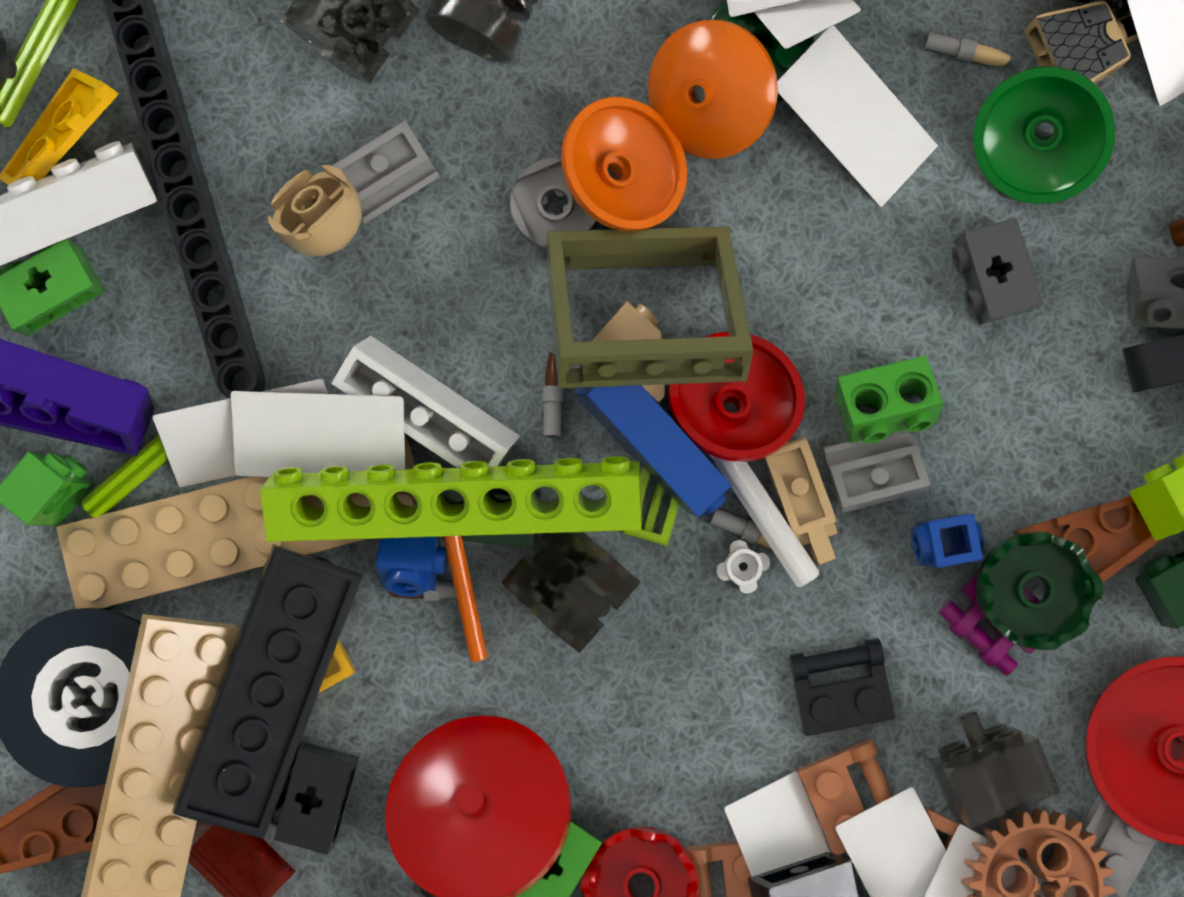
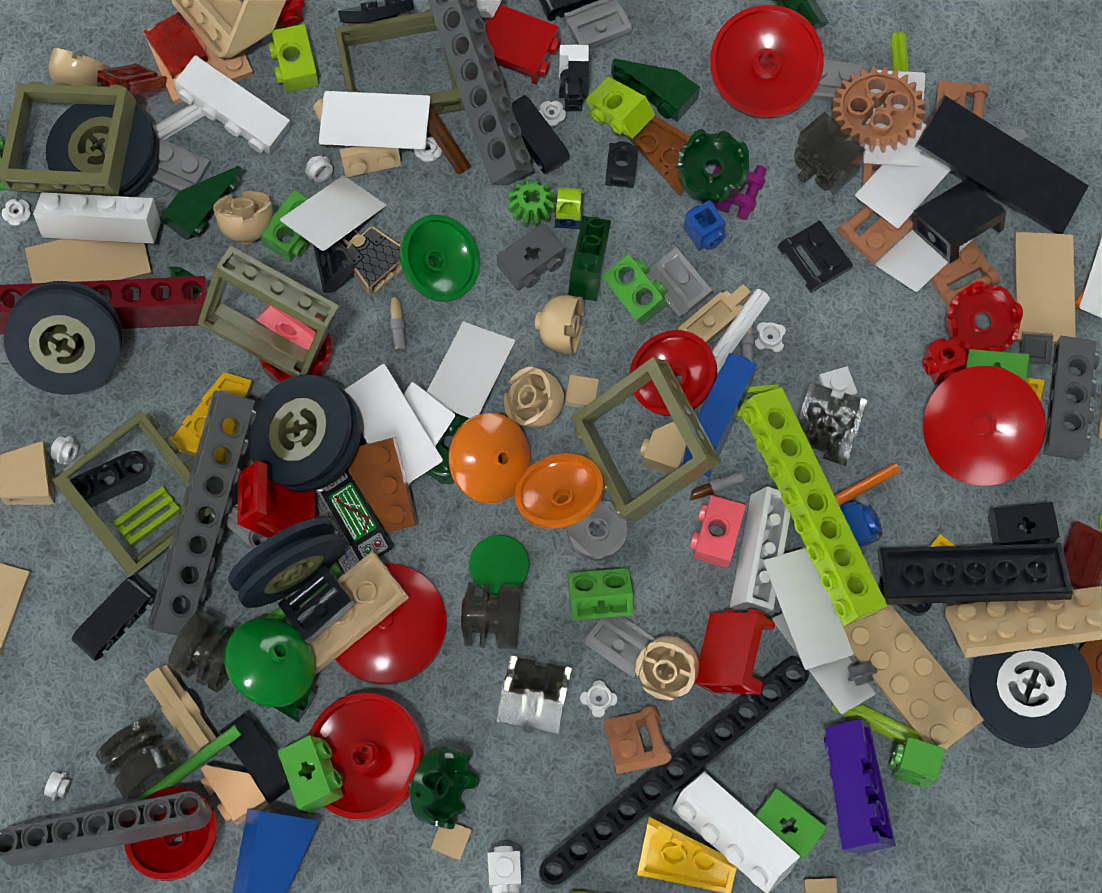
camera: 115 degrees left, 15 degrees down
(204, 474) = (862, 673): none -> dark grey plate
(241, 117) = (627, 745): none -> nougat plate
(300, 304) = (731, 652): none -> red panel
(320, 100) = (589, 698): none -> white plate
(449, 160) = (600, 594): none -> bright green brick
(457, 356) = (725, 515): none -> coral brick
(561, 54) = (498, 561): none -> green tile
(608, 783) = (937, 365): none -> red brick
(633, 632) = (840, 381): none -> white plate
(765, 265) = (581, 391): none -> tan tile
(775, 185) = (533, 398): none -> tan cylinder
(873, 269) = (561, 323): none -> tan cylinder
(964, 355) = (589, 258): none -> dark green slope
(1053, 353) = (568, 208): none -> lime leg
(1075, 459) = (621, 175): none -> black brick
(1078, 290) = (531, 211): none -> bright green gear

